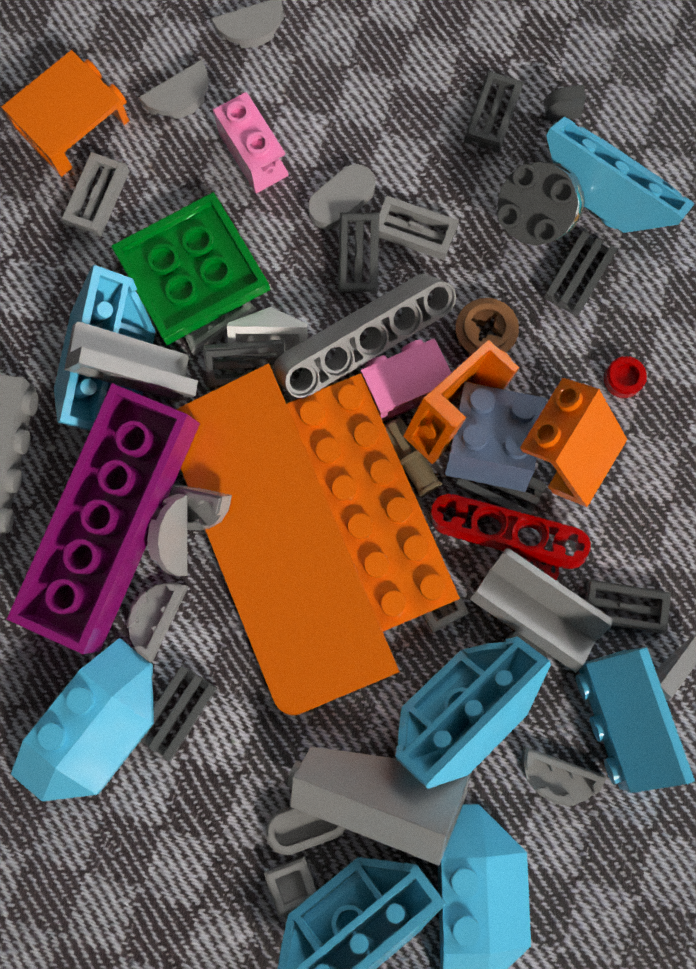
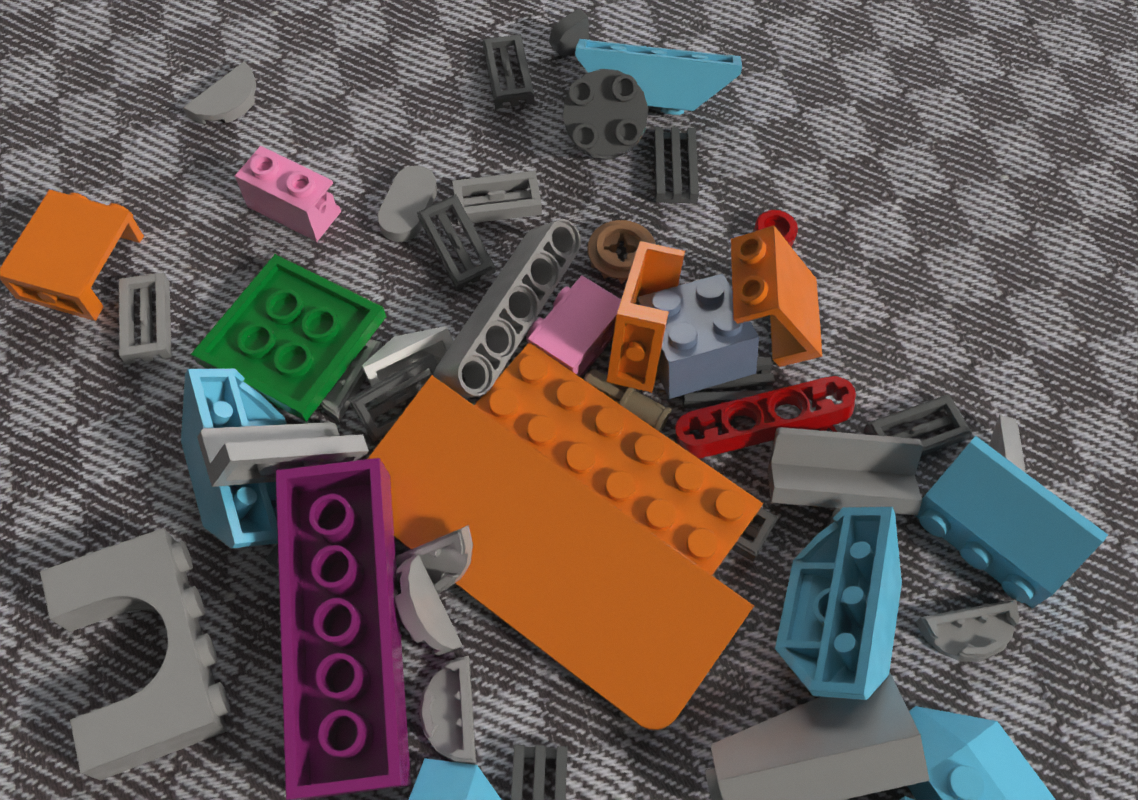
camera: 35 degrees left, 15 degrees down
(179, 94) = (185, 188): light grey tile -> none

